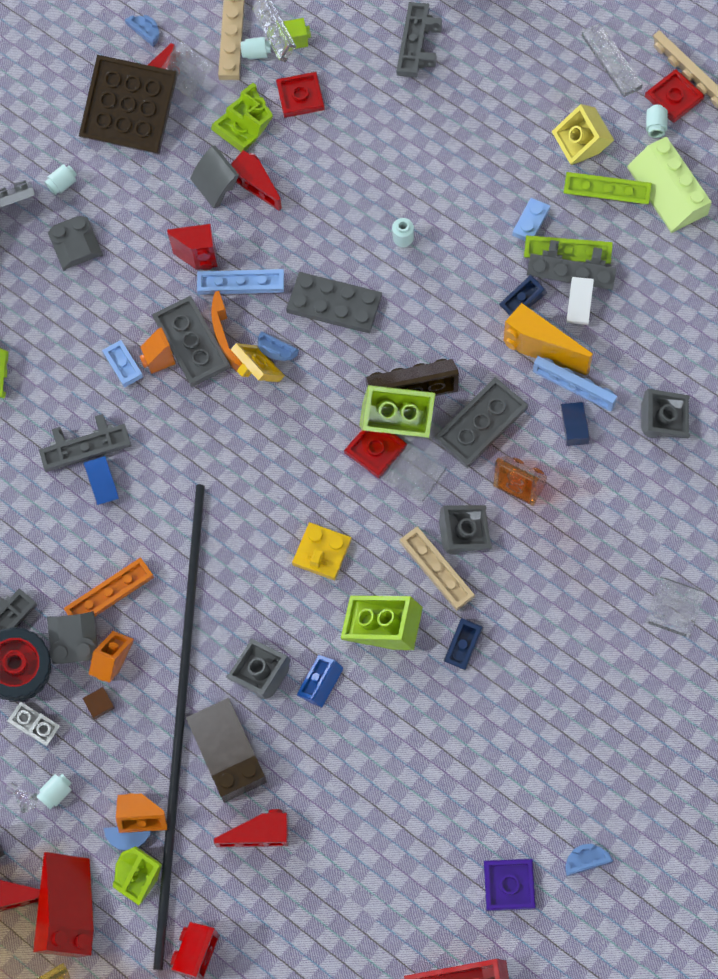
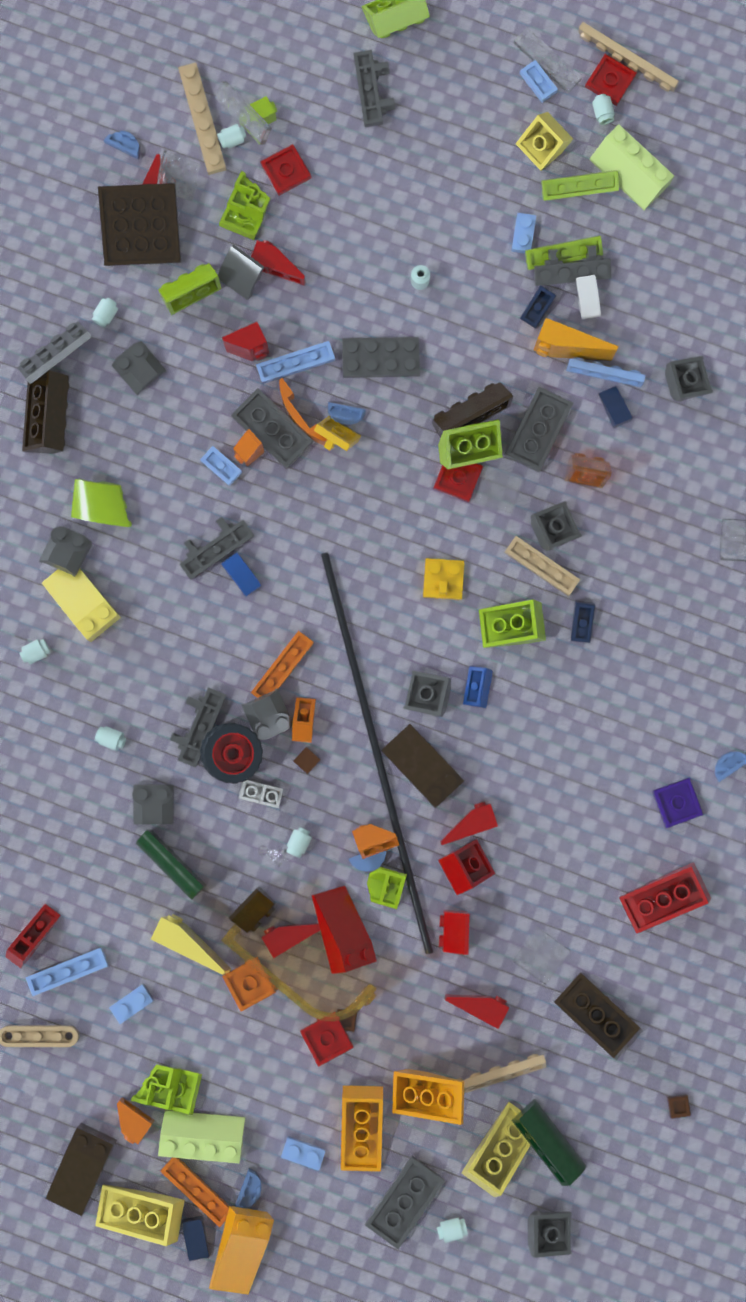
camera: 25 degrees left, 15 degrees up
(156, 180) = (190, 288): none -> lime slope
(235, 880) = (466, 867): none -> red slope
(595, 77) = (538, 81): none -> light blue plate

